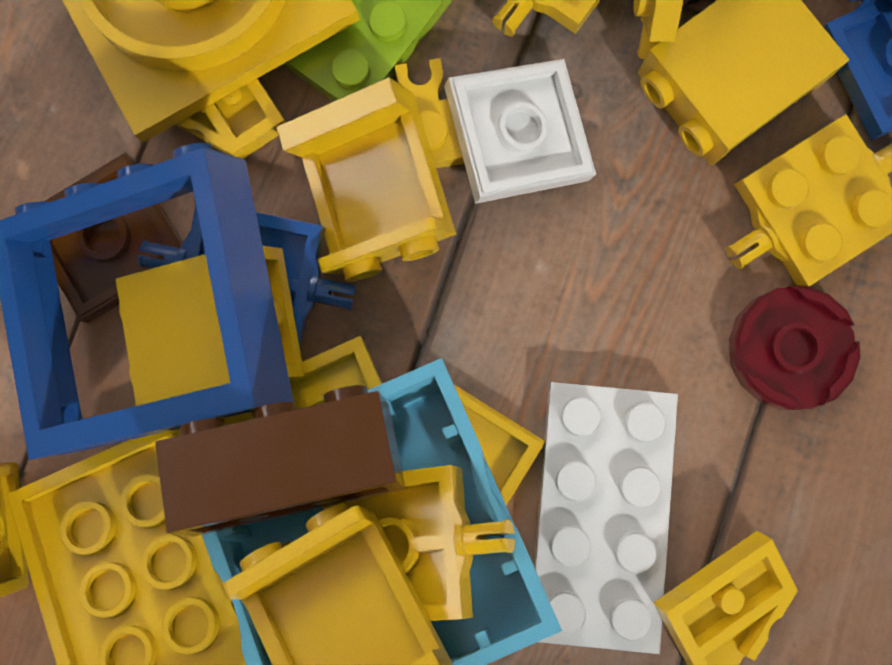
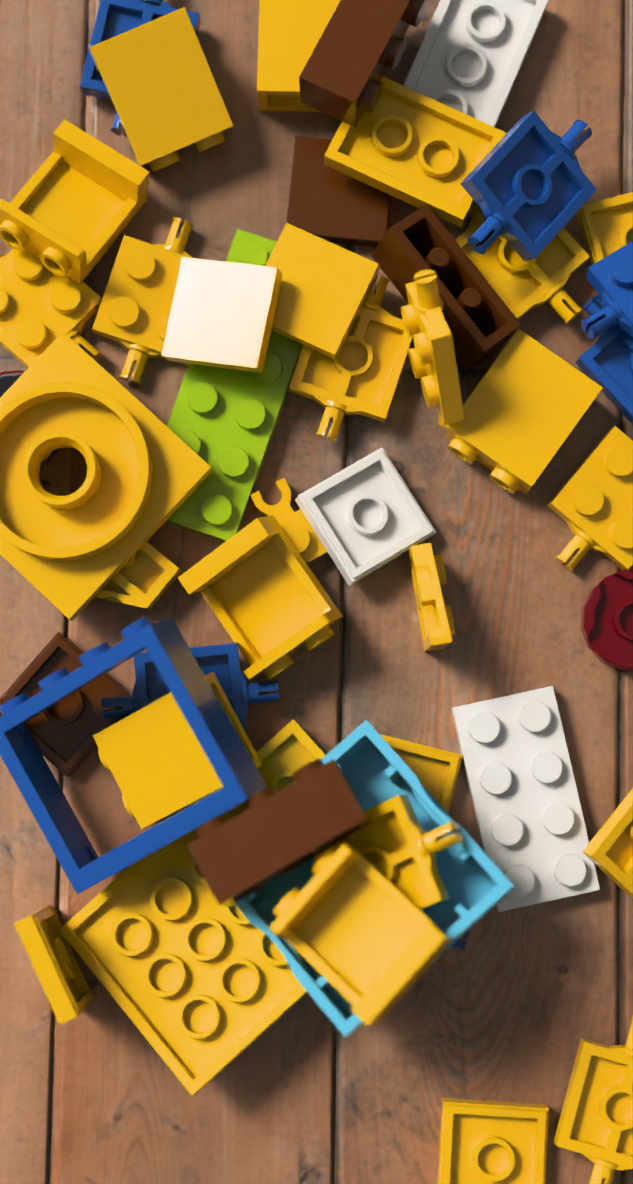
camera: 20 degrees left, 0 degrees up
(570, 222) = (427, 577): none -> yellow wing

